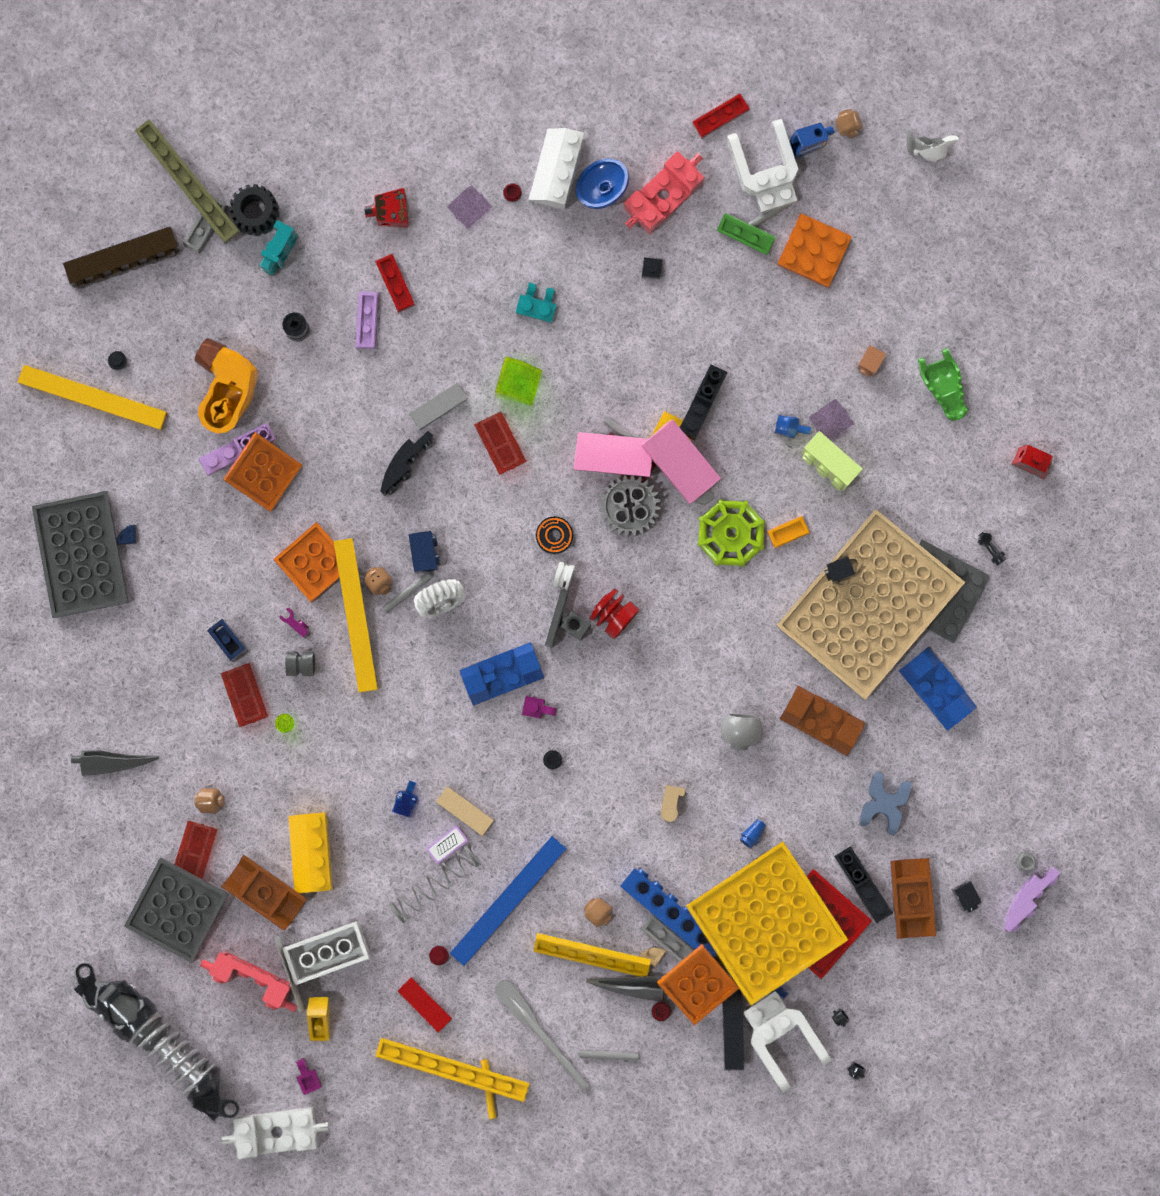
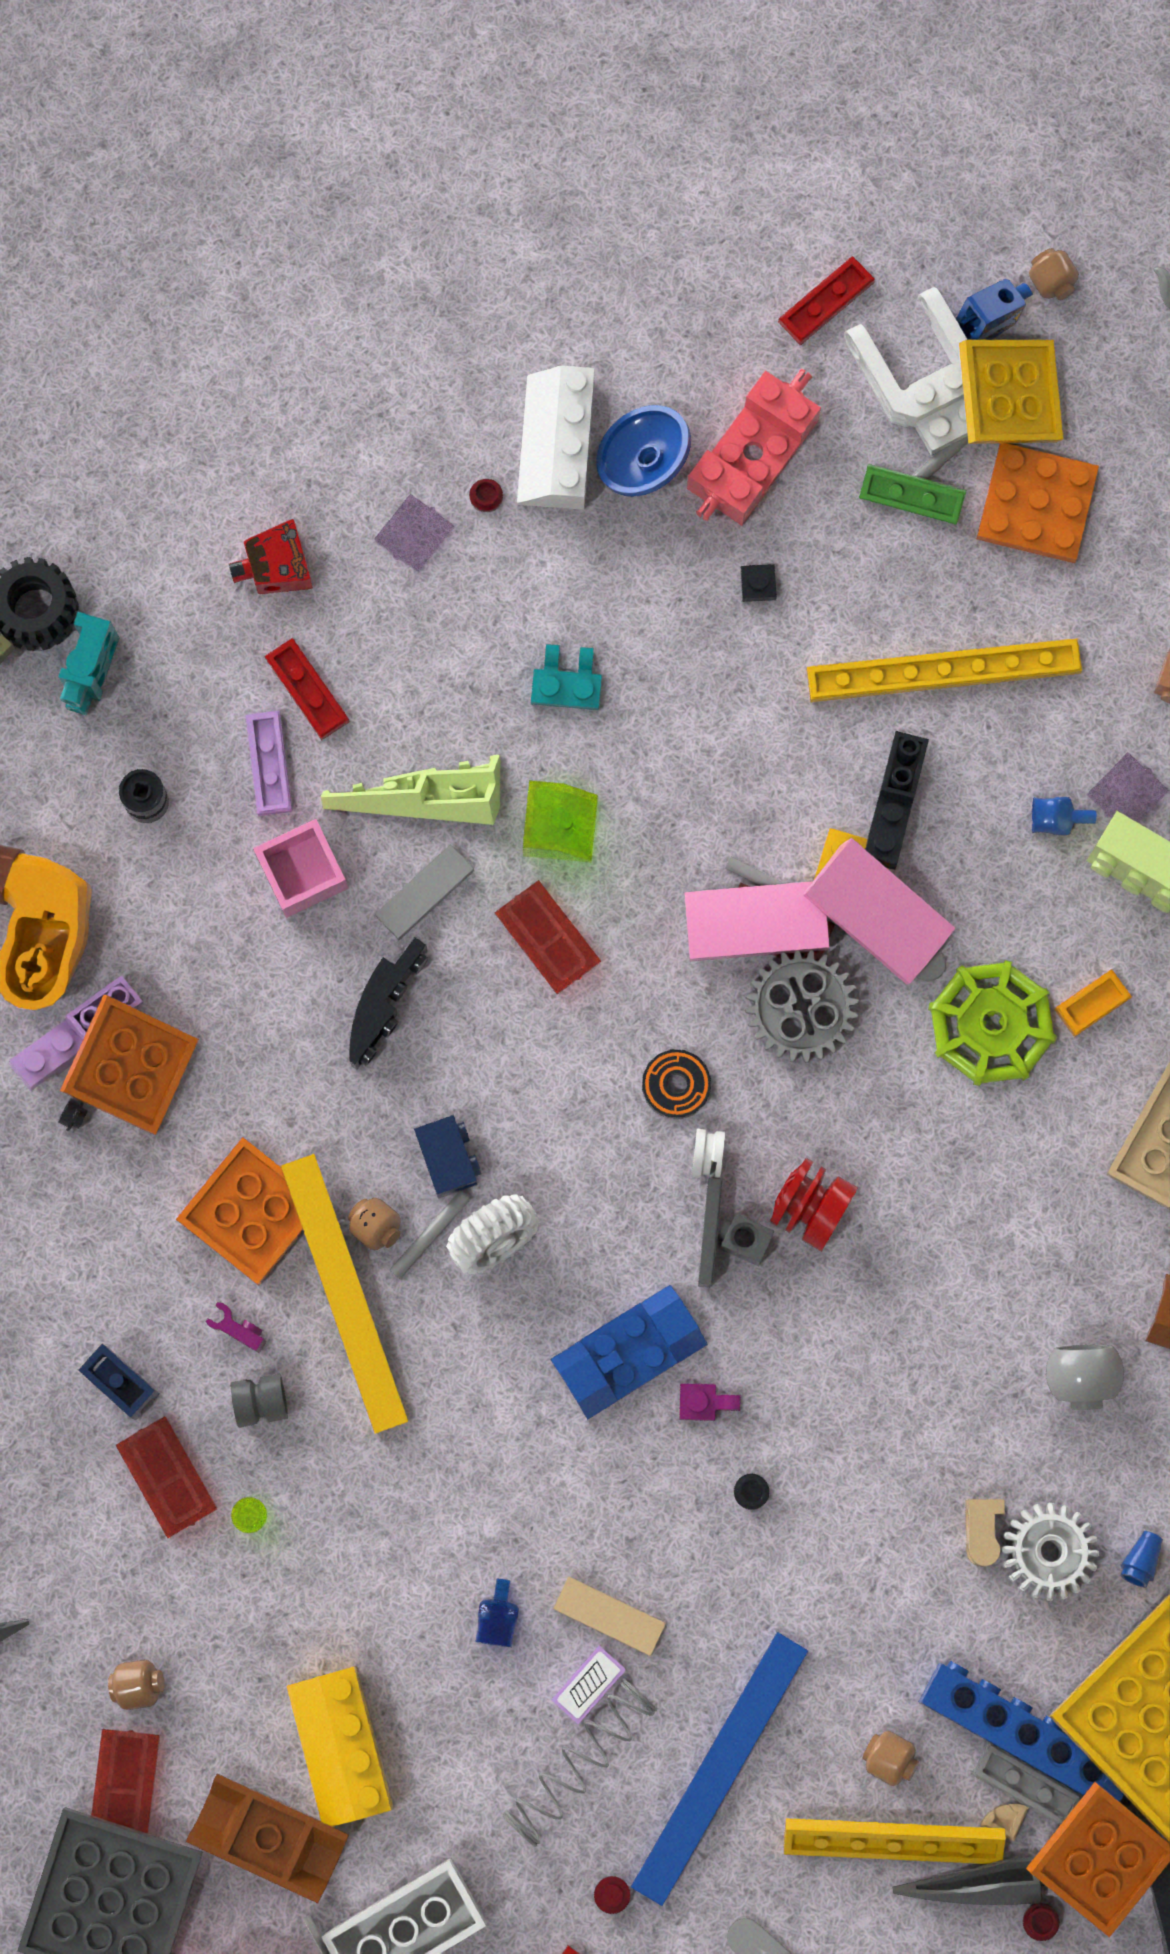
camera: 15 degrees left, 5 degrees down
(228, 493) = (73, 1114): none -> black plate
(373, 382) = (301, 868): none -> bright pink piece
(463, 356) = (447, 795): none -> yellowish green wedge
(707, 808) = (1028, 1556): none -> white gear
(744, 335) = (944, 670): none -> yellow tile
(811, 186) = (1011, 391): none -> yellow plate

